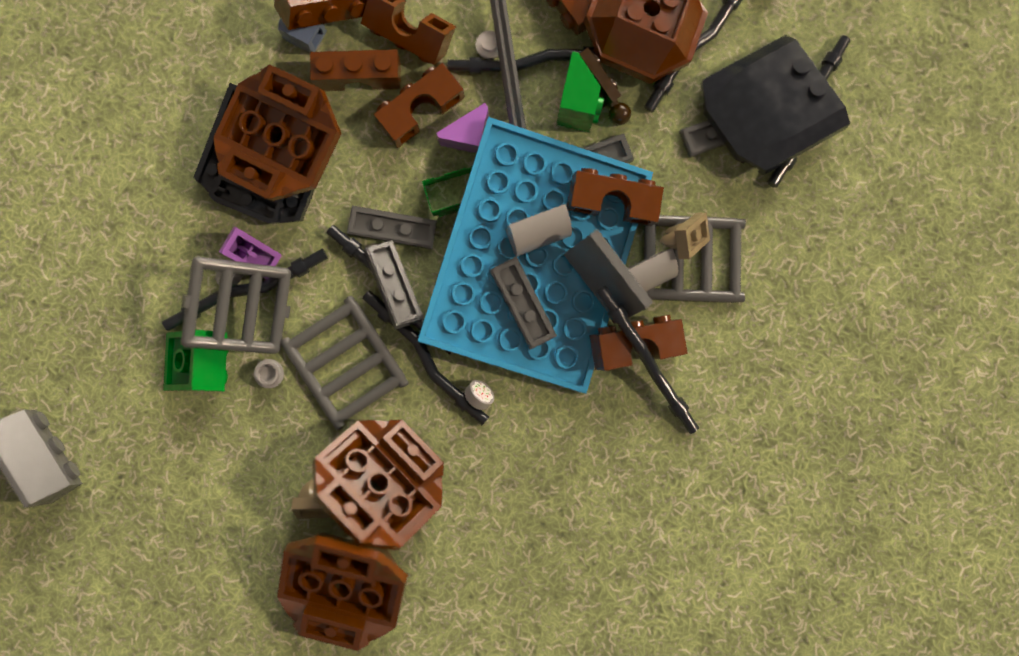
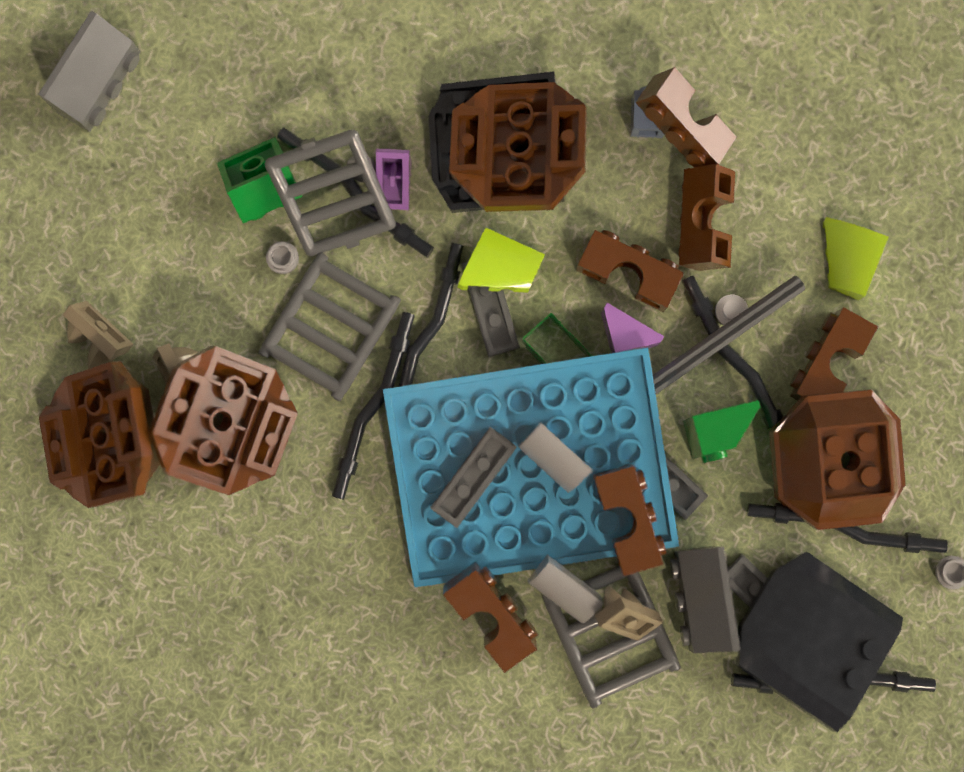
camera: 70 degrees right, 0 degrees up
(242, 558) = (90, 324): none -> dark tan tile
(364, 201) = (501, 264): none -> lime slope
(373, 67) = (630, 179): reddish brown arch -> none
(393, 284) = (430, 336): tile -> none
(479, 395) = (361, 478): tile -> none
(602, 267) = (539, 551): dark grey tile -> none
(618, 315) = (505, 580): black bar -> none
(619, 112) = (745, 454): dark brown plate -> none
(704, 171) = (705, 600): none -> dark grey slope

